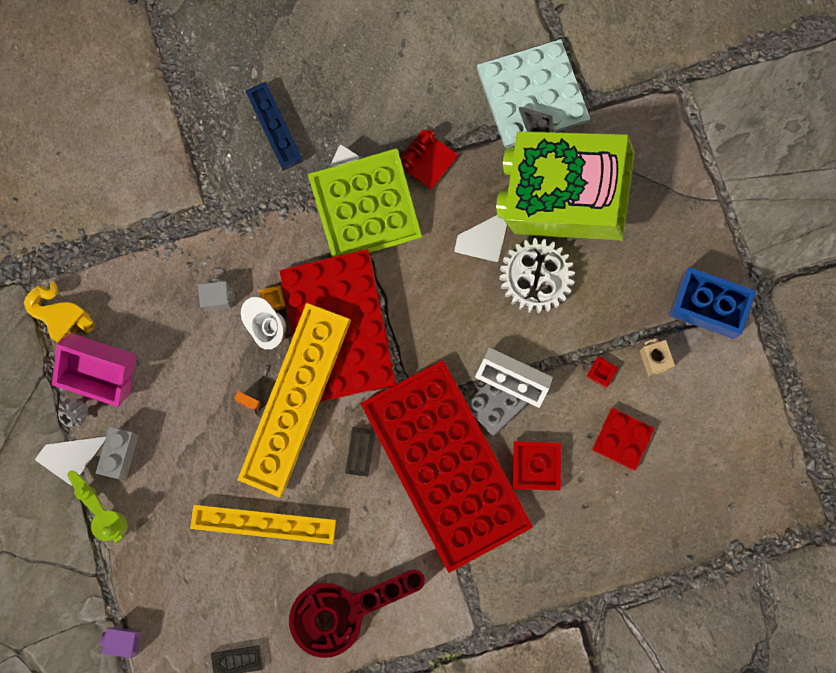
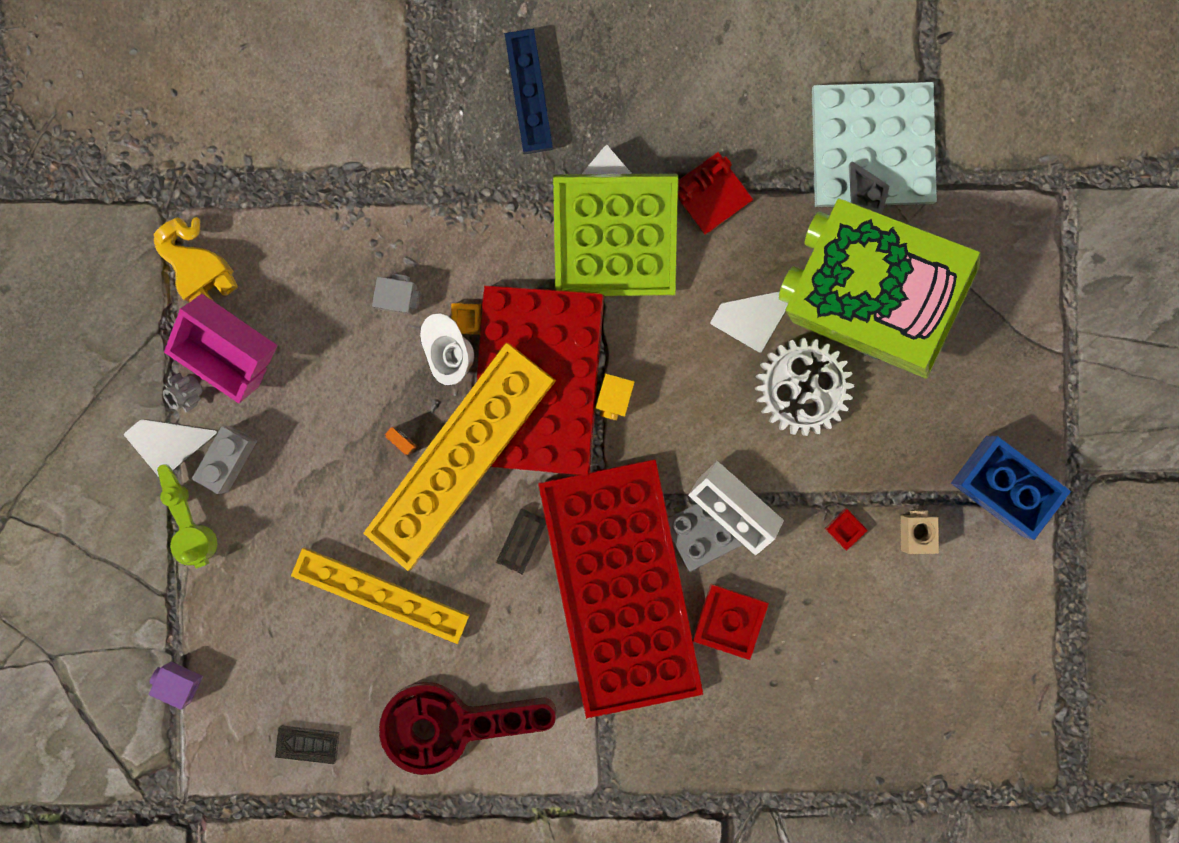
camera: 15 degrees right, 10 degrees up
(398, 323) = (614, 396): none -> yellow brick
(622, 439) = (845, 618): red plate -> none

